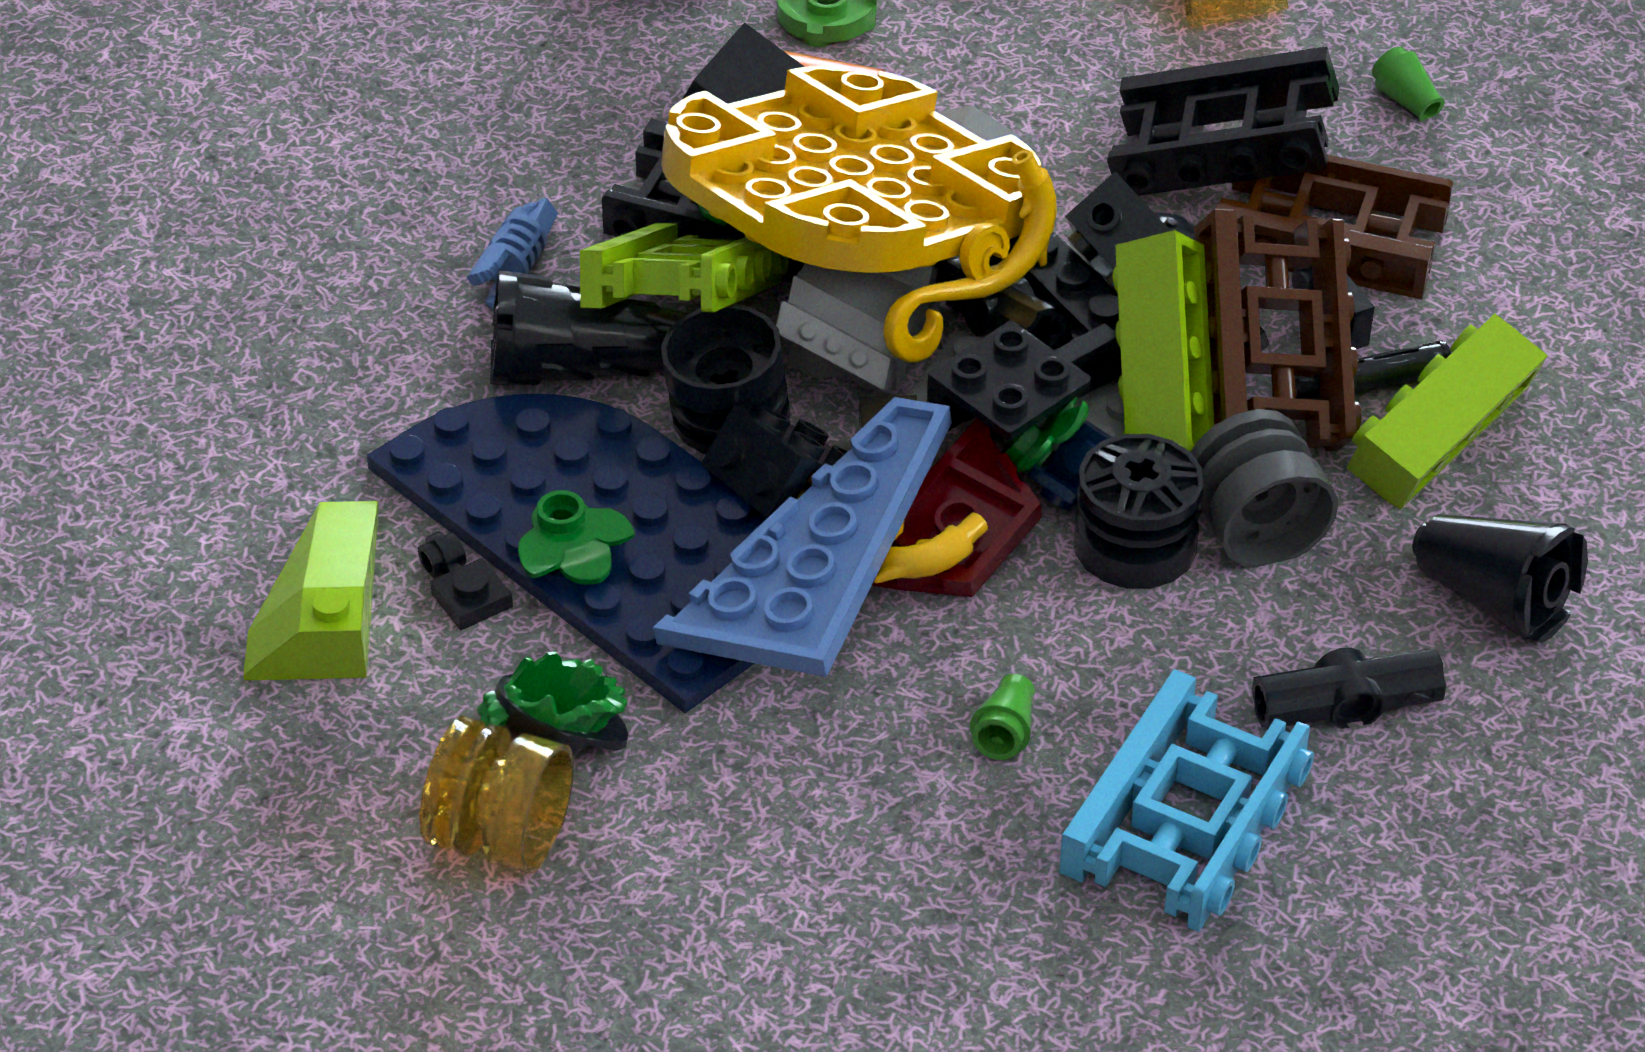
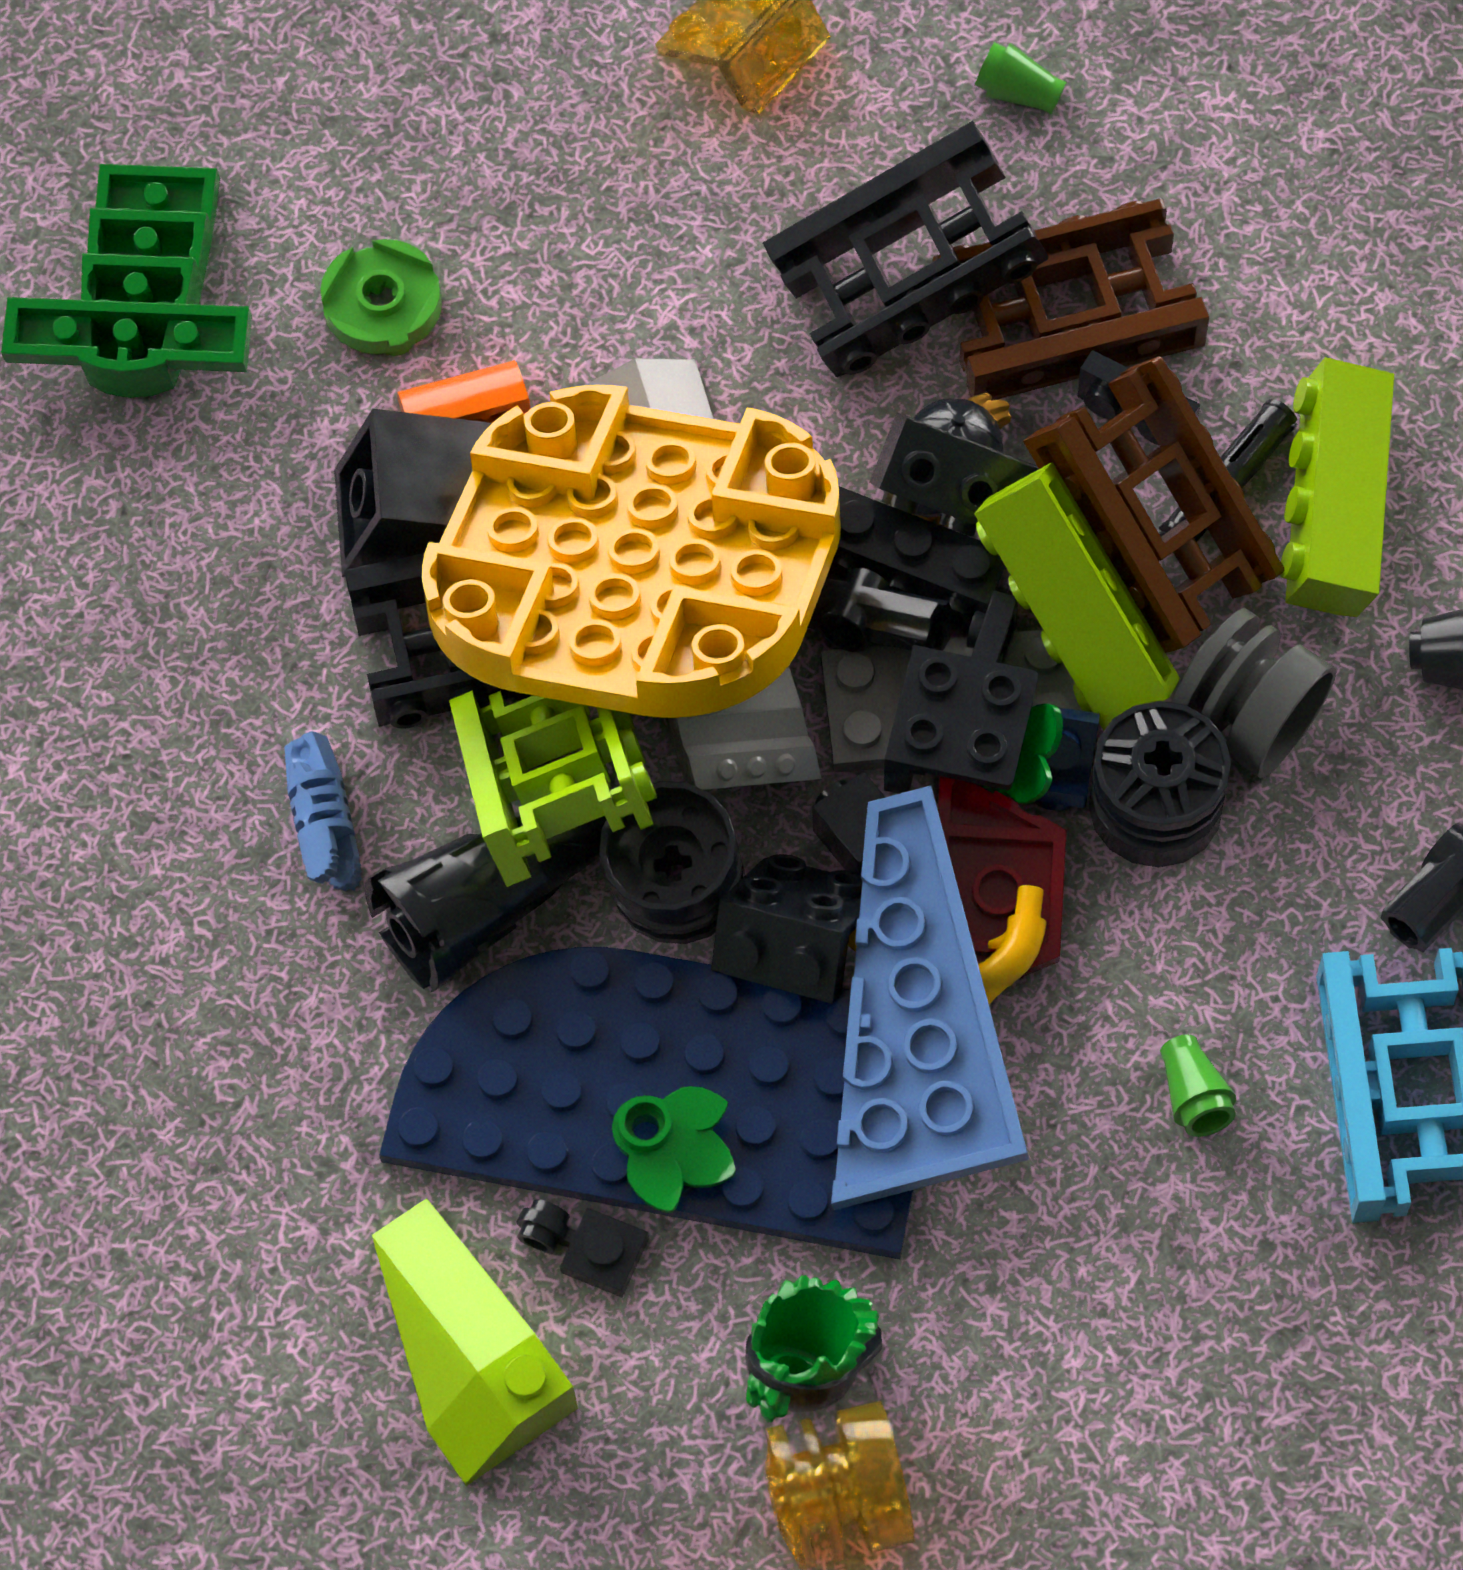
camera: 30 degrees left, 20 degrees up
(982, 280) = (844, 591): yellow plant -> none

